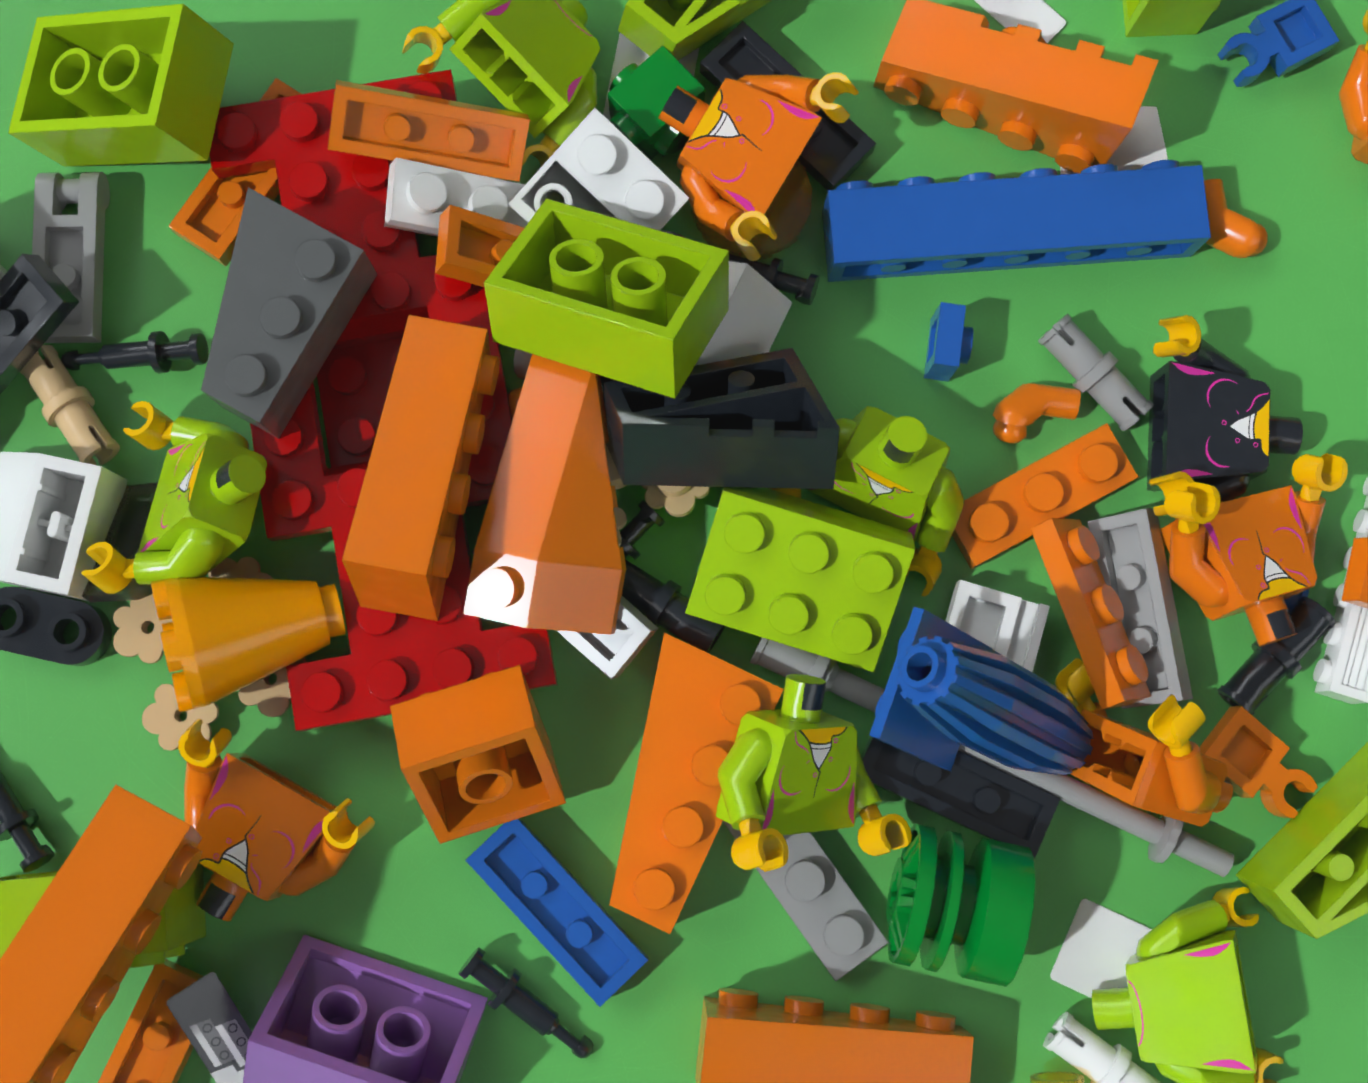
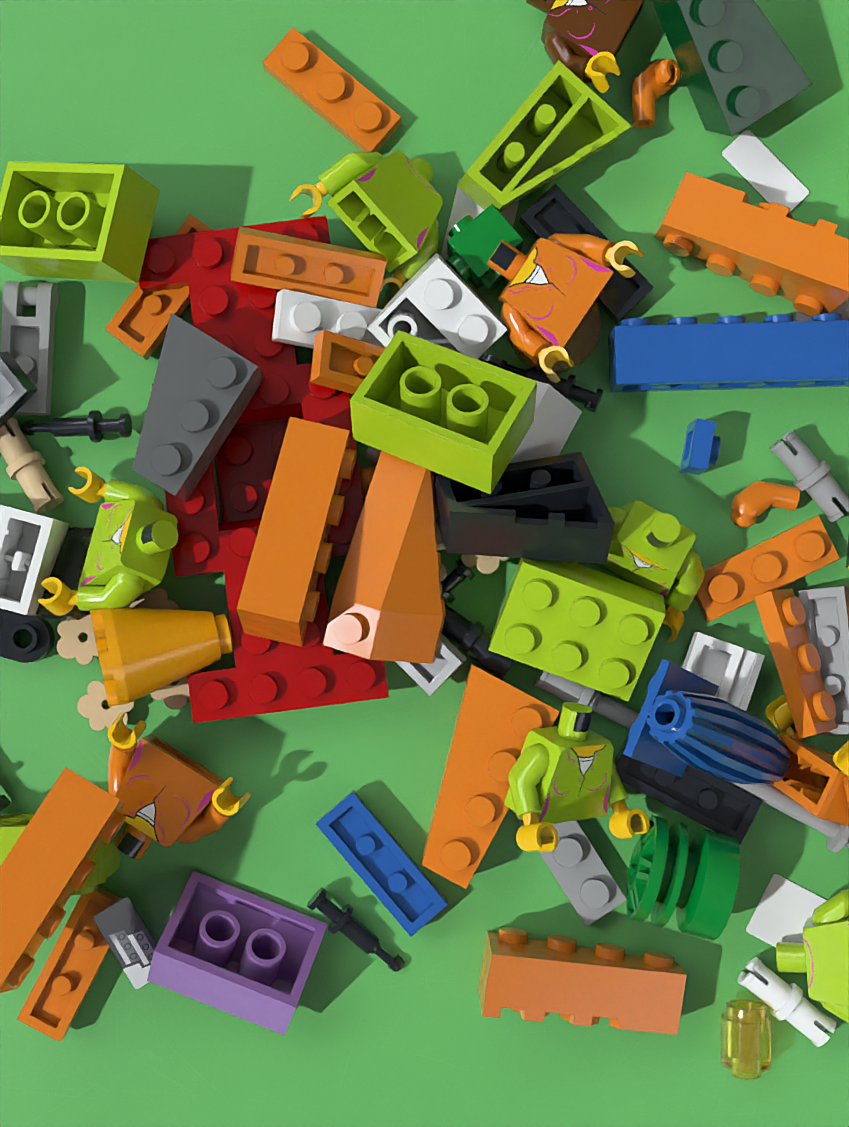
camera: 10 degrees right, 5 degrees up
(477, 754) = (328, 748): orange brick -> none

